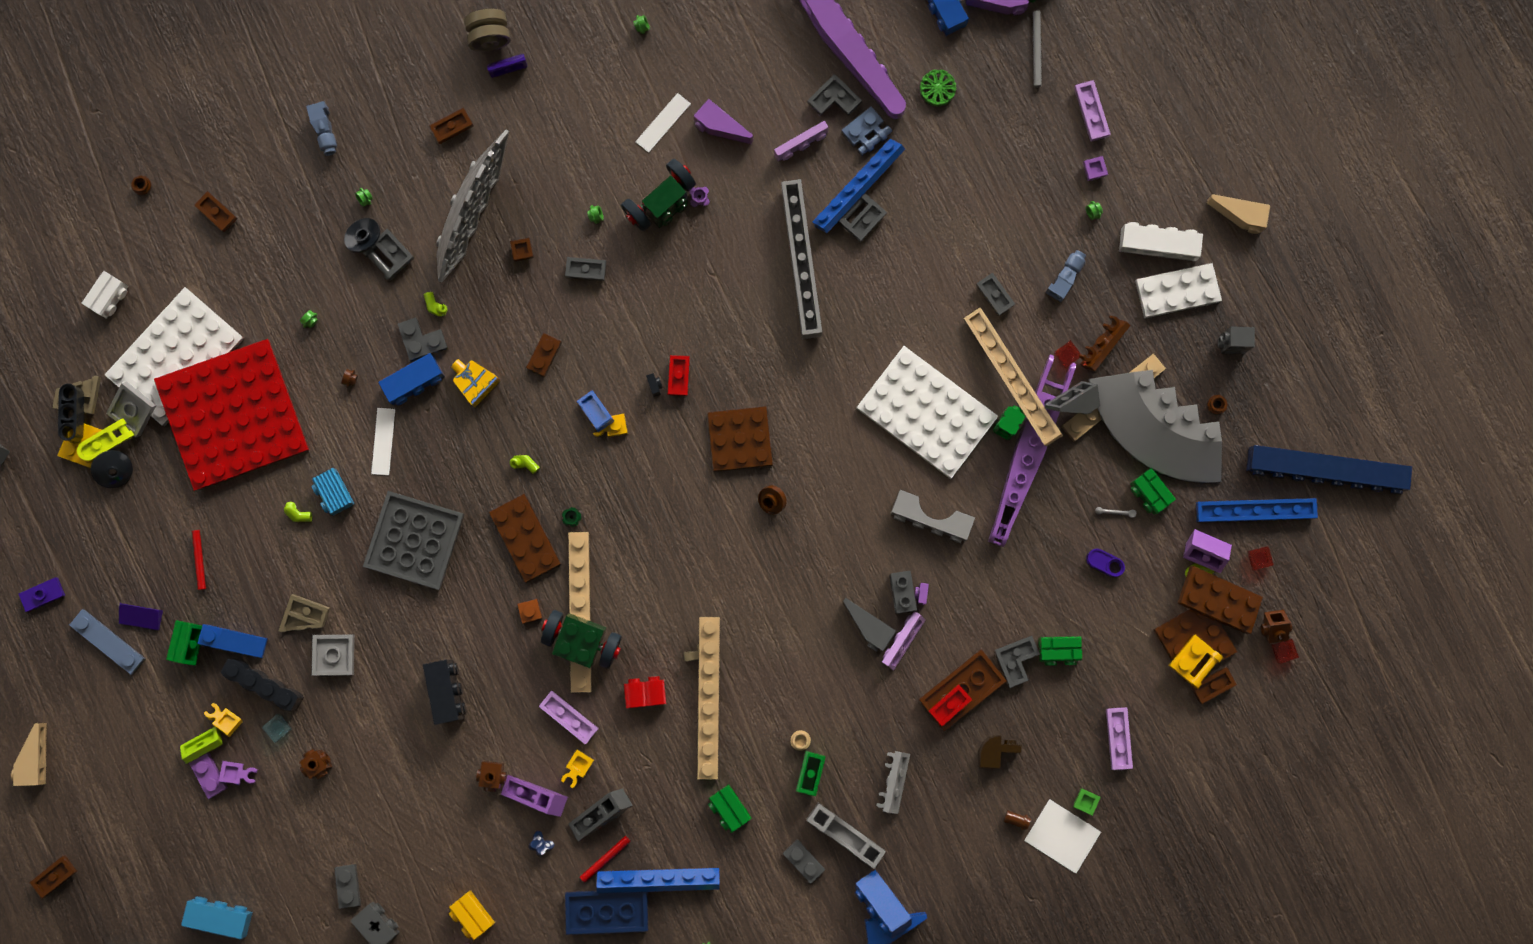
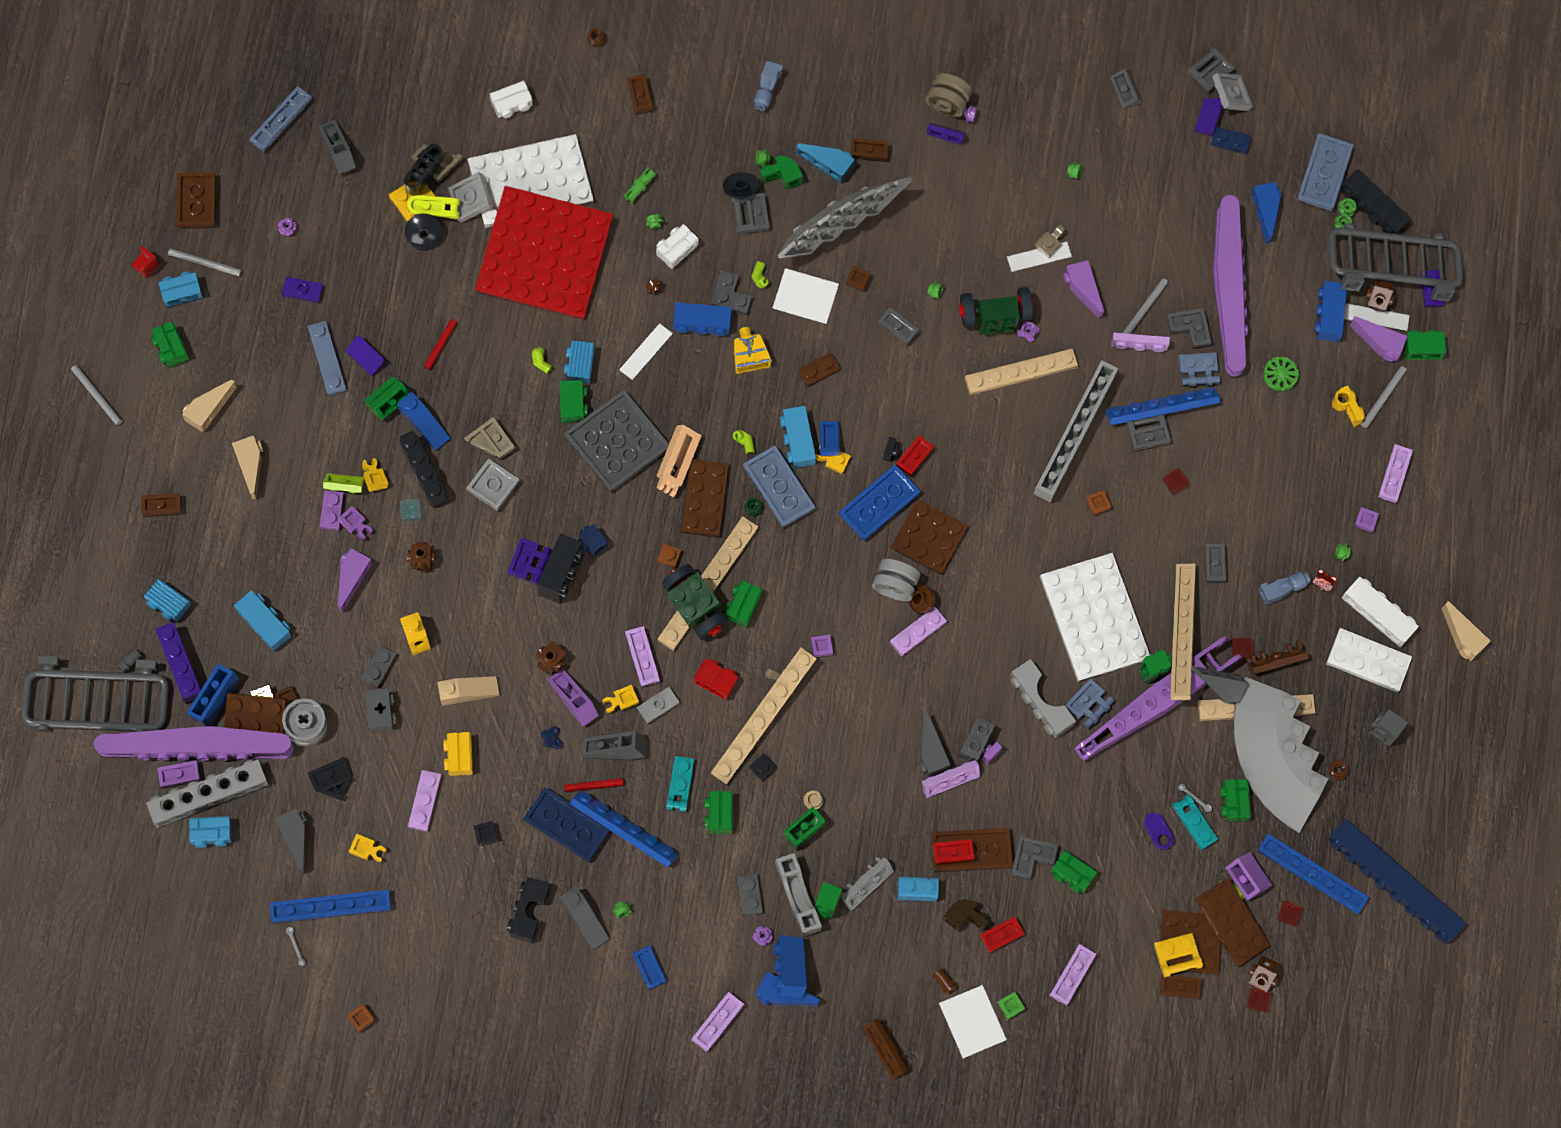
camera: 30 degrees right, 10 degrees down
(105, 784) = (250, 461): none -> tan slope
(266, 823) = (352, 572): none -> medium lavender slope
(273, 295) = (639, 185): none -> bright green pin
(344, 328) = (676, 246): none -> white brick
(350, 532) = (572, 401): none -> green brick
(357, 836) = (415, 632): none -> yellow torso
(388, 194) = (784, 168): none -> green brick
(406, 702) = (523, 560): none -> dark purple plate
(425, 159) = (829, 160): none -> dark azure slope
(438, 853) = (467, 689): none -> tan slope
(453, 645) = (592, 540): none -> dark blue brick
(477, 514) = (680, 455): none -> light nougat hinge
(487, 295) = (805, 296): none -> white sticker
(517, 33) = (970, 113): none -> medium lavender plate
(567, 428) = (798, 437): none -> dark azure brick
(581, 484) = (778, 486): none -> sand blue plate
(611, 750) = (658, 705): none -> light grey plate
(623, 610) = (743, 604): none -> green brick
(663, 104) = (1049, 242): none -> dark tan plate
(677, 438) = (879, 502): none -> blue plate
(678, 805) = (680, 783): none -> teal plate
(715, 600) = (821, 646): none -> medium lavender plate
(717, 237) = (1021, 371): none -> tan plate
(738, 741) = (762, 767): none -> black plate
(739, 496) = (896, 580): none -> light grey wheel
(784, 107) = (1145, 307): none -> light grey bar
(787, 529) = (918, 631): none -> lavender plate
(839, 894) = (762, 940): none -> medium lavender plate
(862, 309) = (1098, 502): none -> dark orange plate
(874, 824) = (827, 900): none -> green brick
(914, 245) = (1175, 481): none -> clear red plate
(941, 757) = (917, 889): none -> dark azure brick
(967, 492) = (1084, 699): none -> sand blue plate
(1009, 913) = (885, 1048): none -> reddish brown plate
(1019, 78) = (1354, 412): none -> yellow plate
(1037, 745) = (1002, 934): none -> red plate
(1096, 247) = (1324, 581): none -> clear red plate
(1130, 534) = (1195, 822): none -> teal plate

